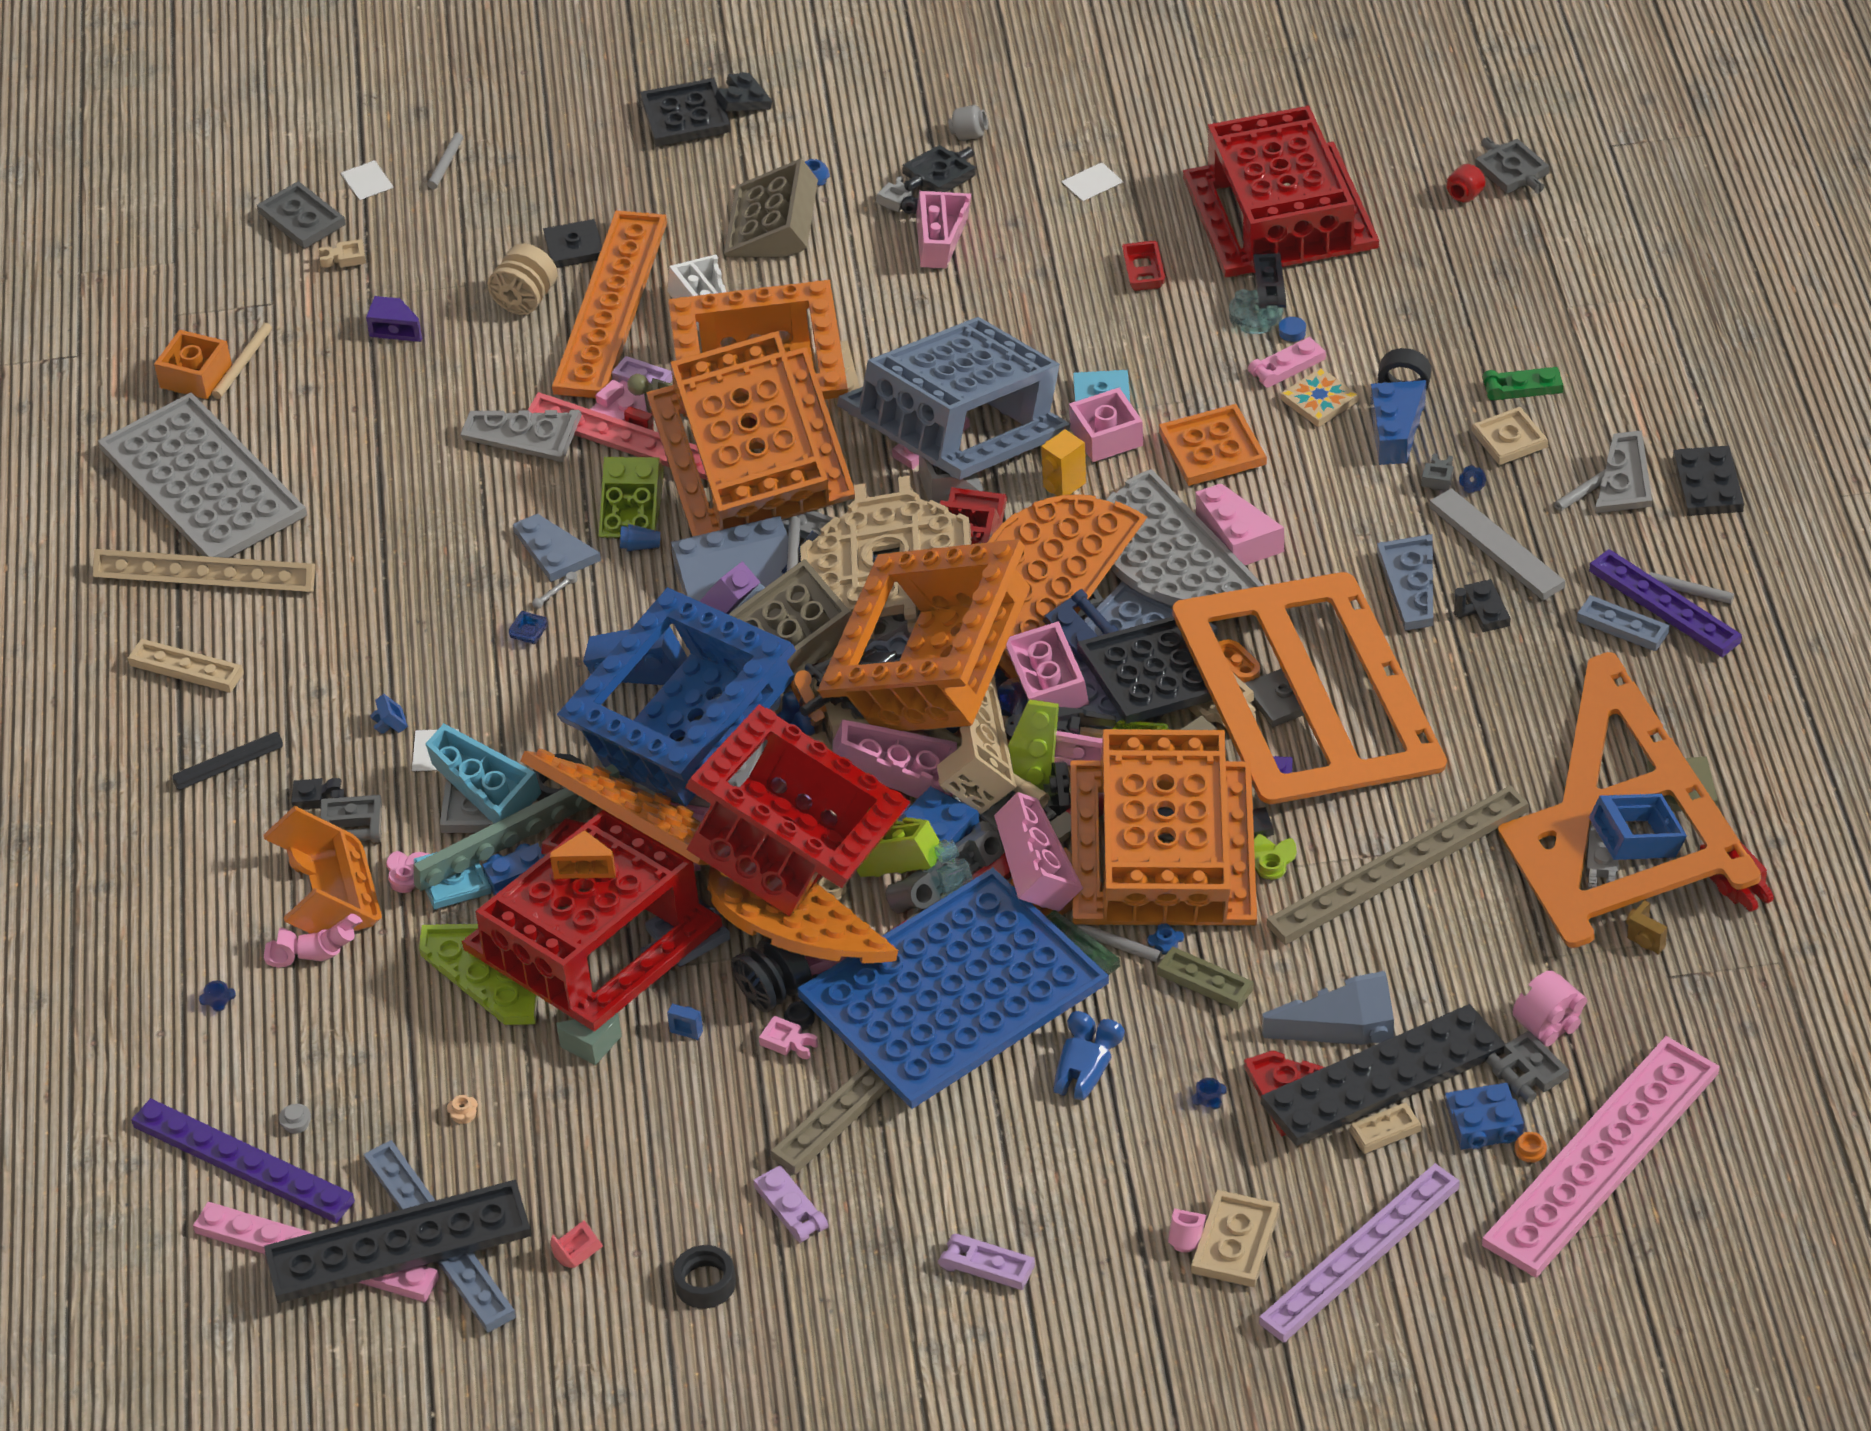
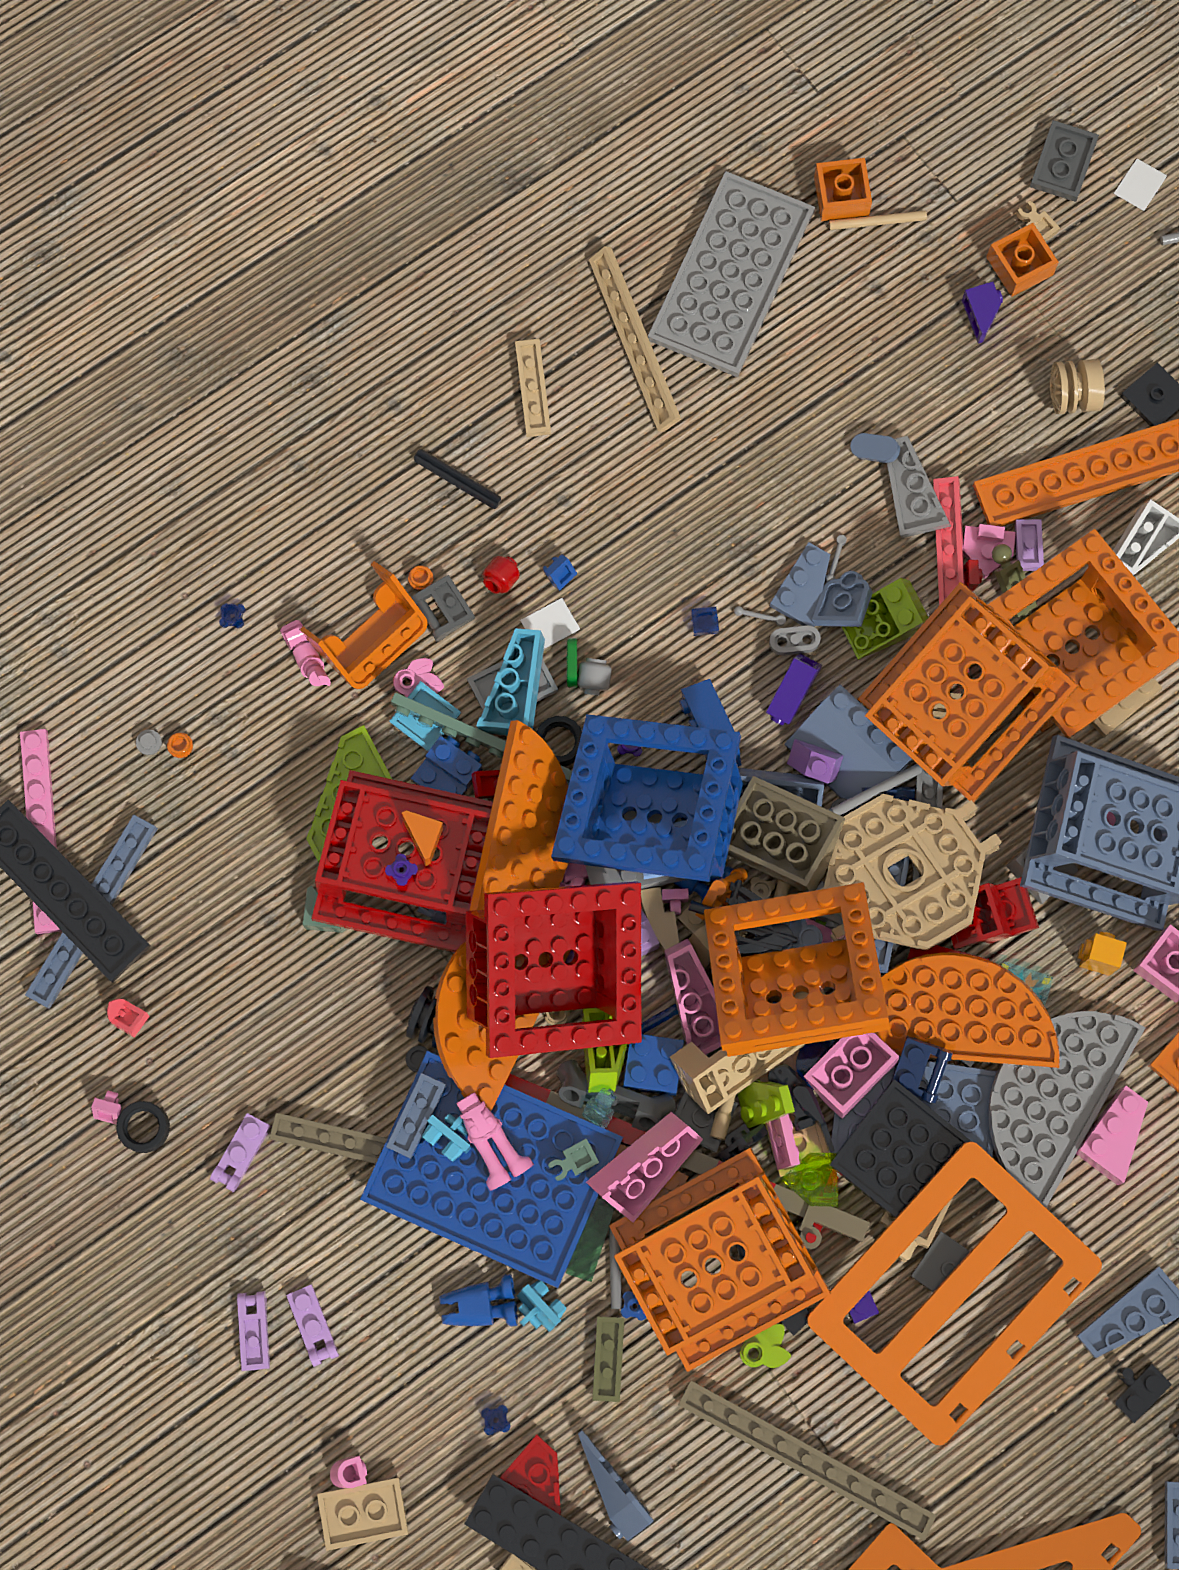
camera: 60 degrees right, 30 degrees up
(243, 1160) = (96, 729): dark purple plate -> none
(309, 792) = (457, 561): black plate -> none
(319, 1091) = (180, 745): none -> orange plate
(355, 759) = (500, 574): none -> red head
(370, 271) = (1022, 259): none -> orange brick
(461, 440) = (875, 447): none -> sand blue tile
(462, 1109) = (219, 862): light nougat plate -> none
(491, 737) = (572, 662): none -> green tile
(516, 727) = (594, 676): none -> light grey head
(529, 505) = (841, 540): none -> light grey hinge
(592, 515) = (843, 601): none -> sand blue plate
(600, 570) = (793, 638): none -> light grey plate
(606, 890) = (401, 877): none -> dark purple plate
(638, 538) = (845, 650): blue cone -> none
(642, 575) = (793, 689): none -> dark purple slope
(664, 1298) = (107, 1109): none -> bright pink tile
(685, 1021) = (370, 976): blue plate -> none
(786, 1036) = (391, 1058): bright pink plate -> none
(858, 1014) = (415, 1116): none -> sand blue plate
(895, 991) = (437, 1129): none -> medium azure hips
(914, 954) = (480, 1127): none -> bright pink piece
(990, 904) = (578, 1158): none -> sand green plate
(1013, 1211) = (312, 1324): none -> lavender plate
(1126, 1008) = (536, 1310): none -> medium azure hips
(1240, 660) = (963, 1214): orange plate -> none

